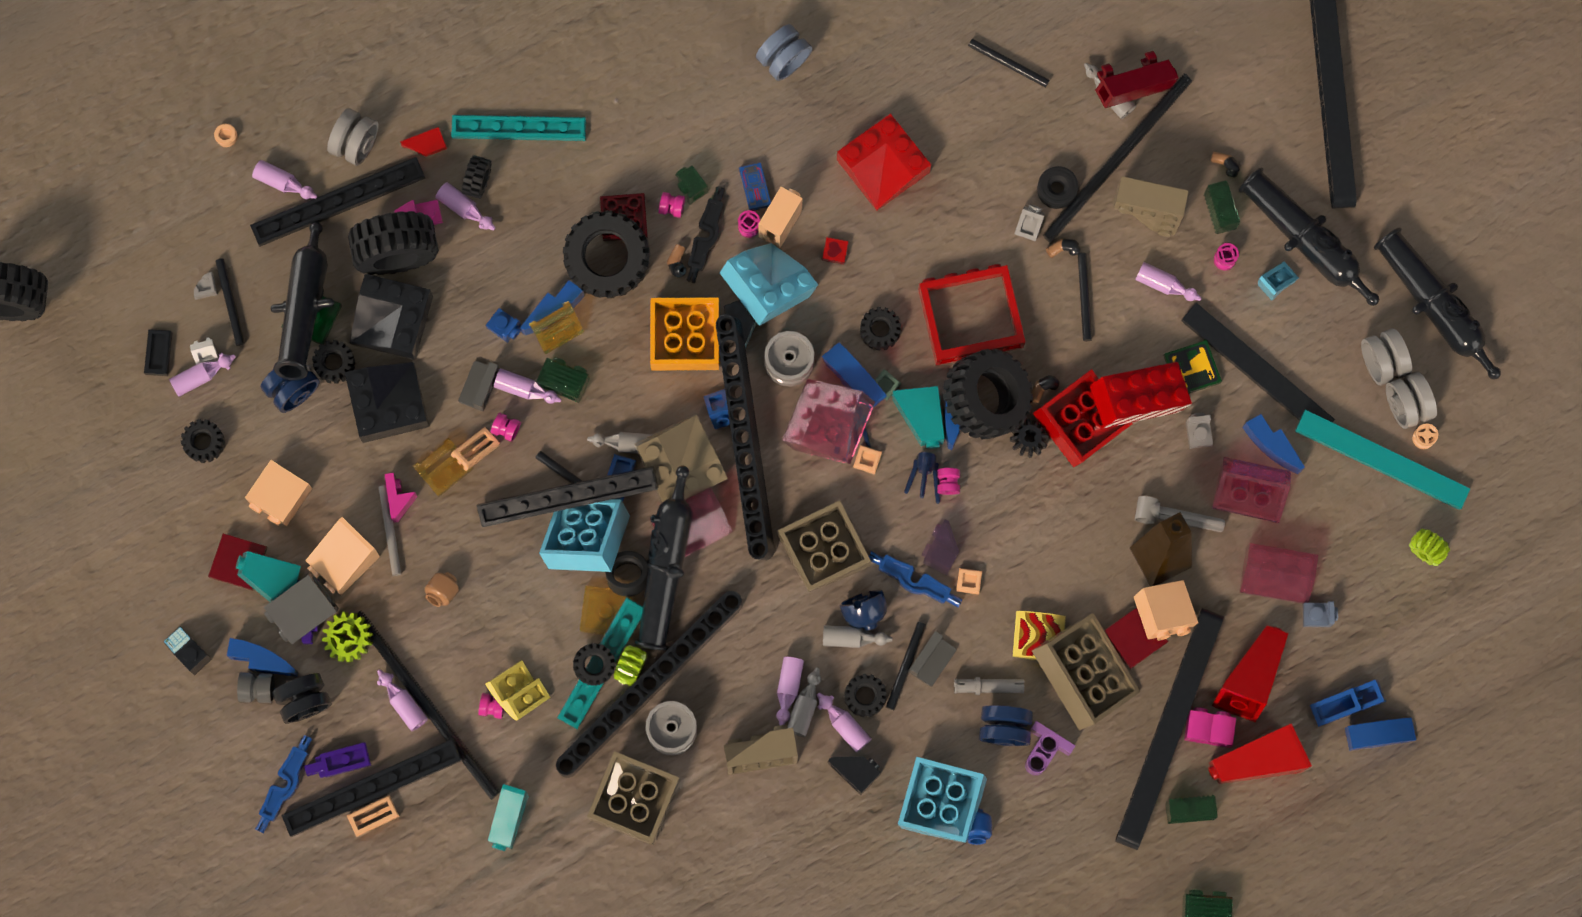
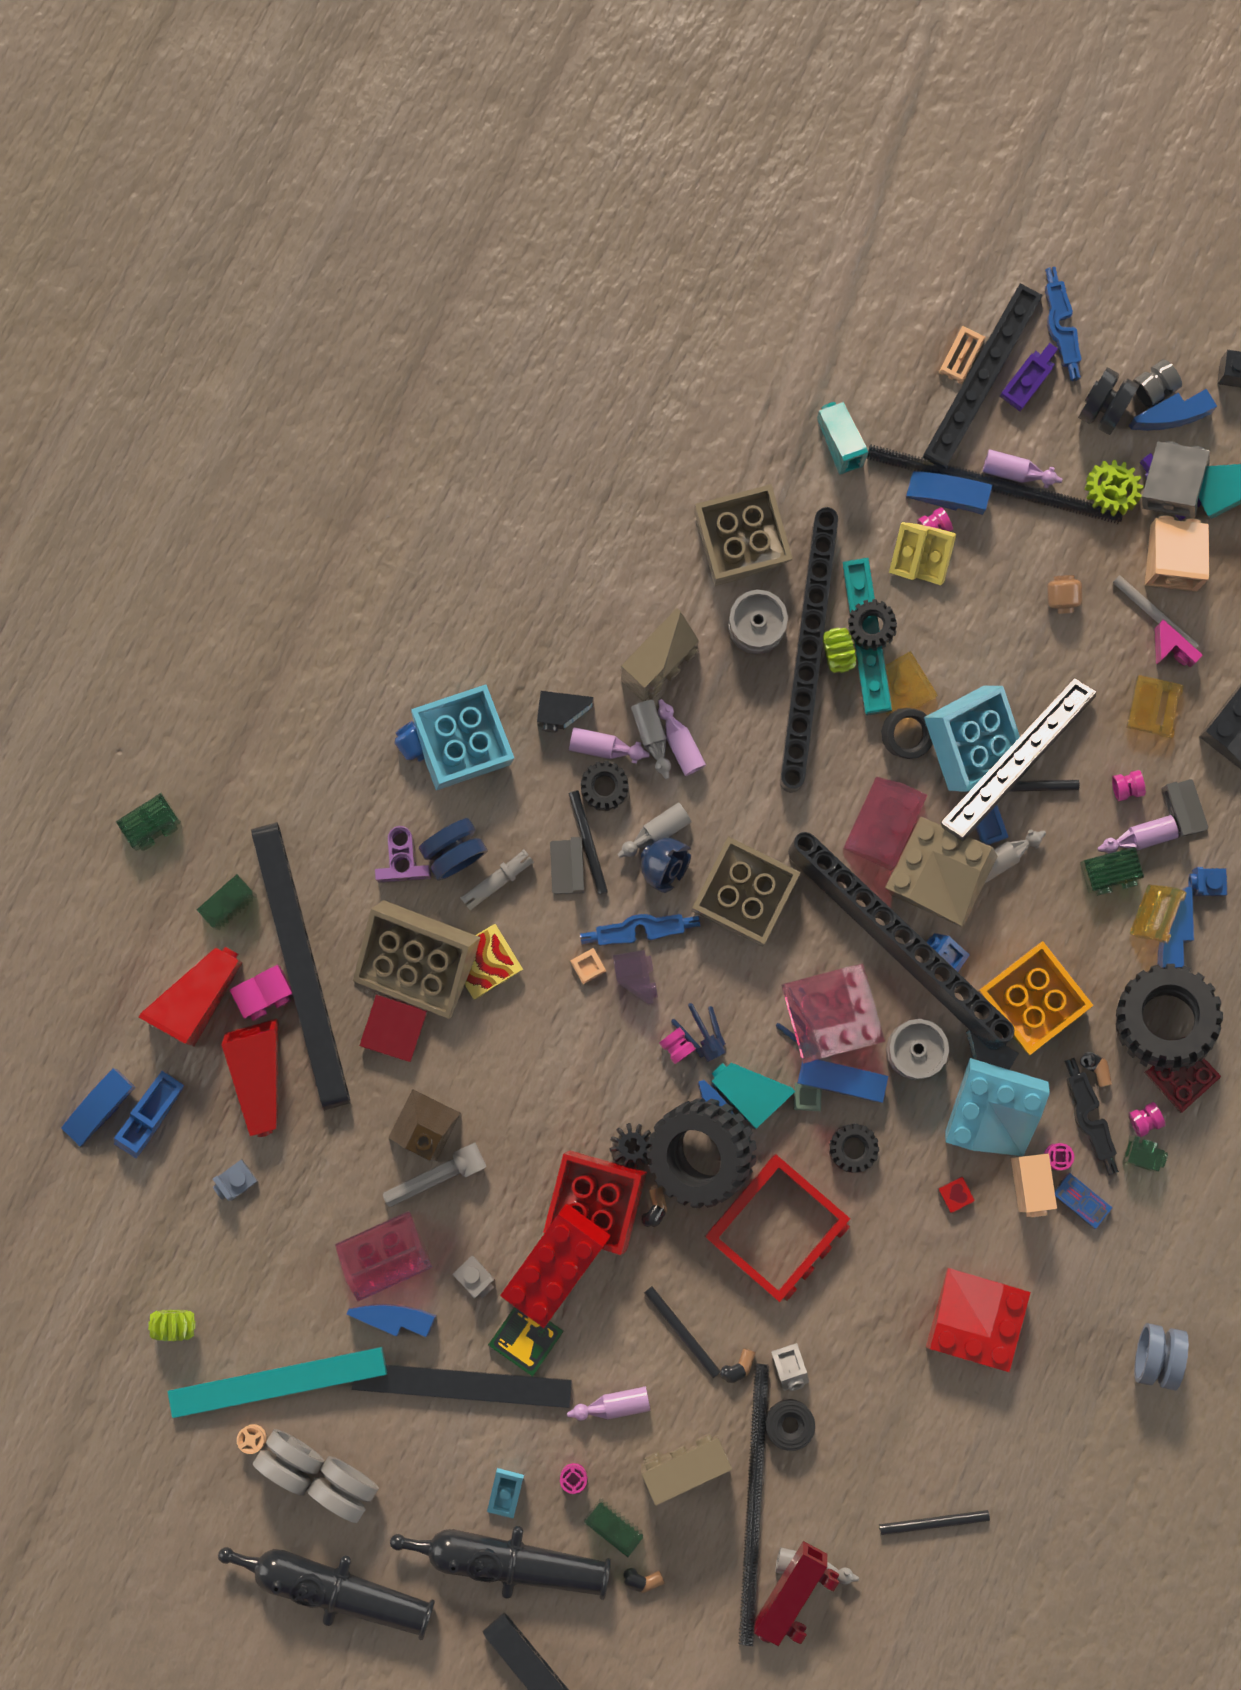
camera: 145 degrees right, 5 degrees up
(463, 459) = (1129, 740): light nougat tile -> none
(463, 721) = (949, 491): none -> blue slope
(665, 565) = (878, 759): black piece -> none
(867, 459) = (769, 1011): light nougat tile -> none
(1166, 610) = (381, 1071): light nougat piece -> none
(1278, 573) = (300, 1191): clear pink slope -> none

